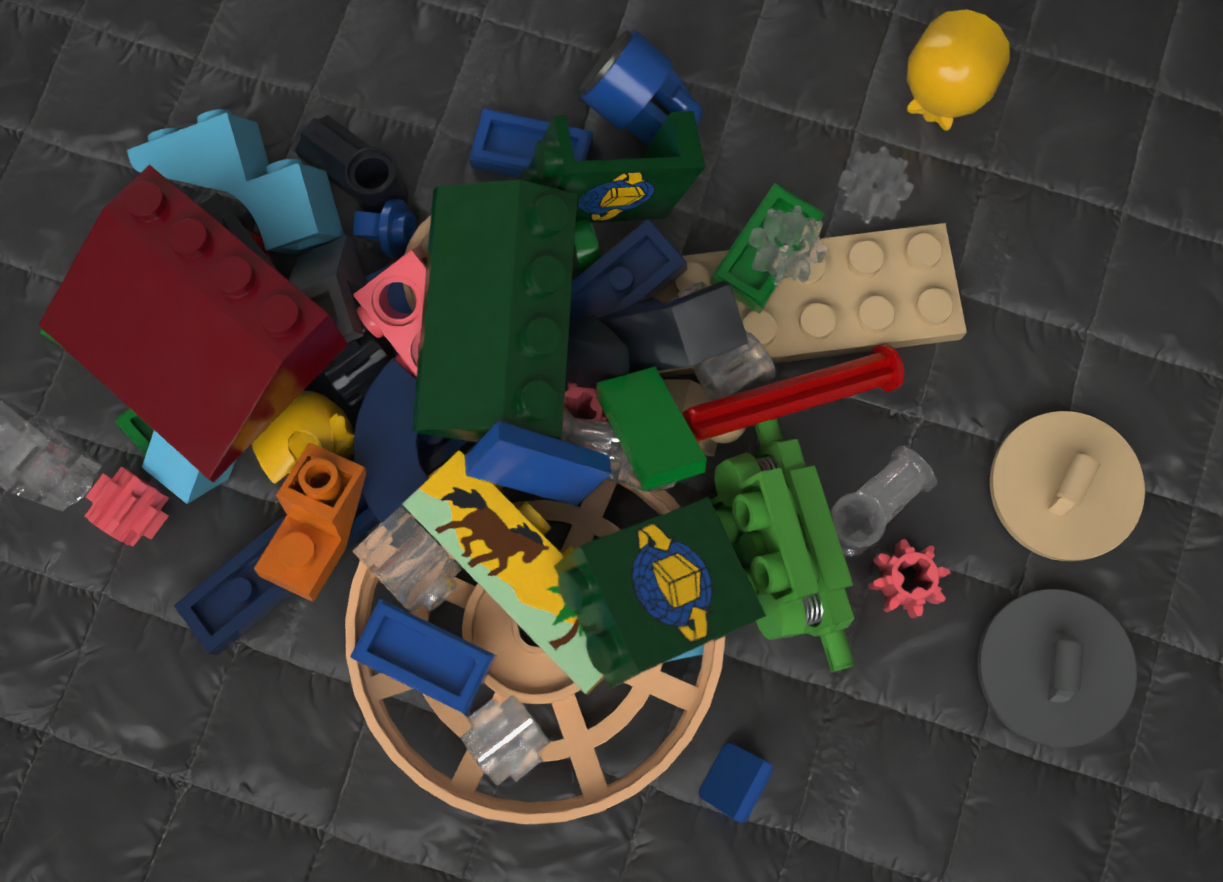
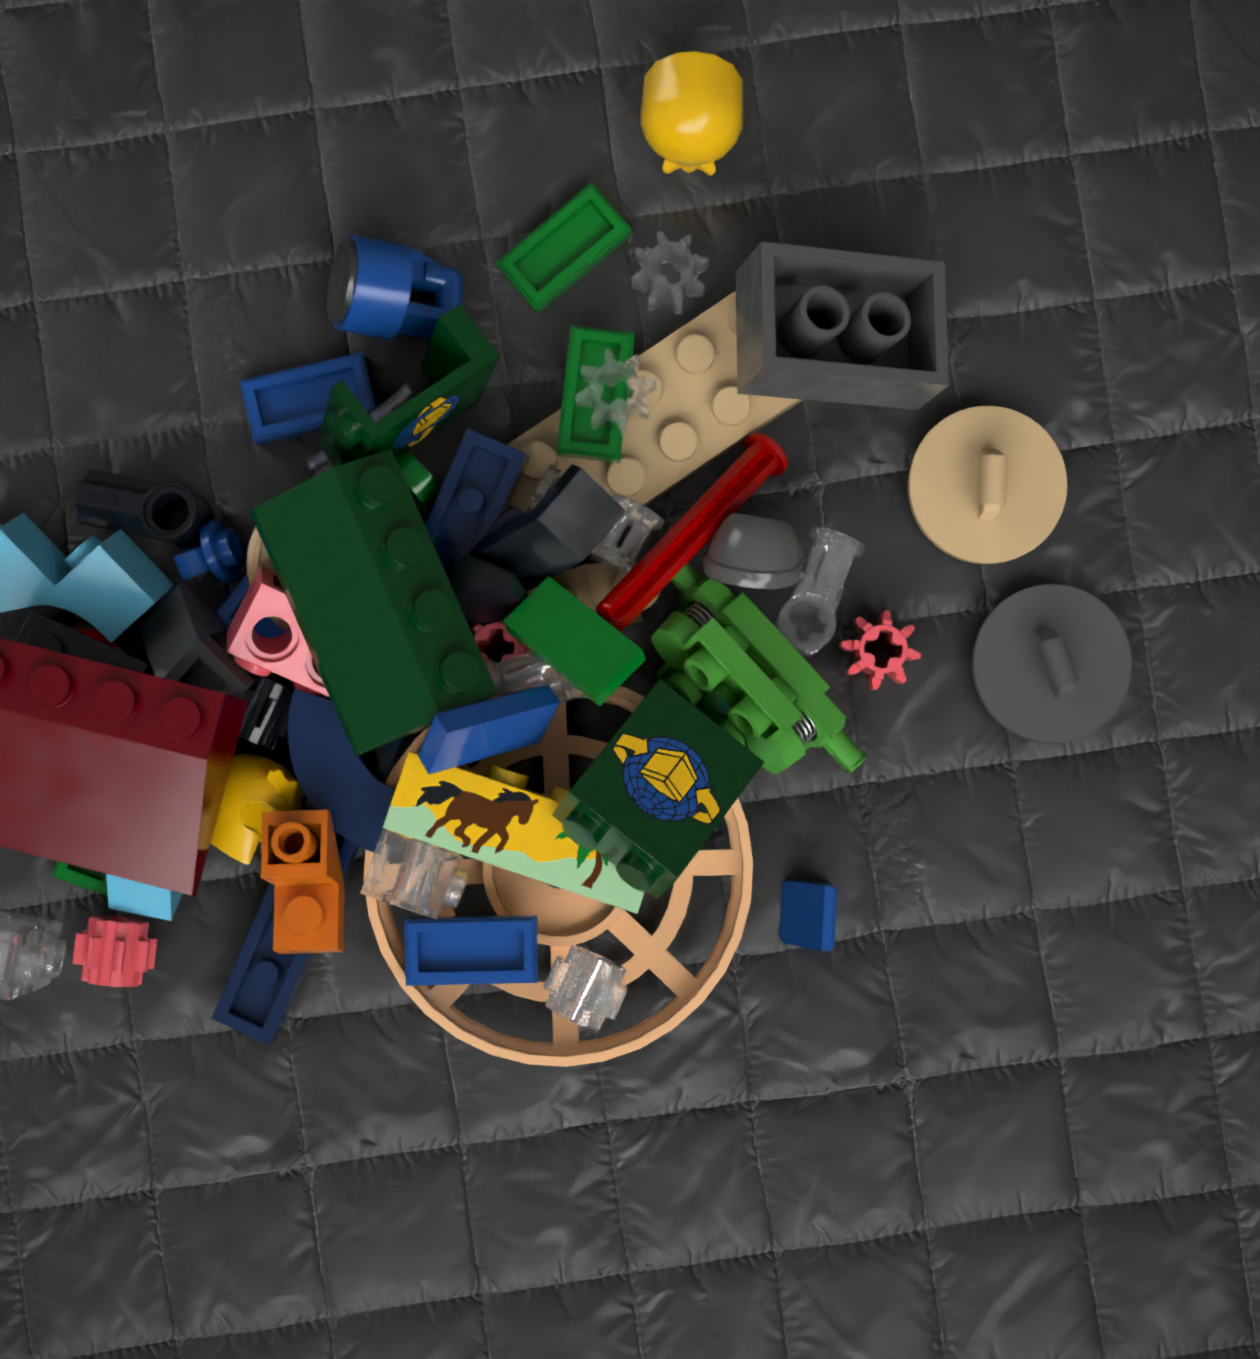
camera: 25 degrees left, 10 degrees up
(796, 131) = (564, 248): none -> green tile
(843, 434) = (755, 553): none -> dark grey hat
(1005, 287) = (841, 326): none -> dark grey brick

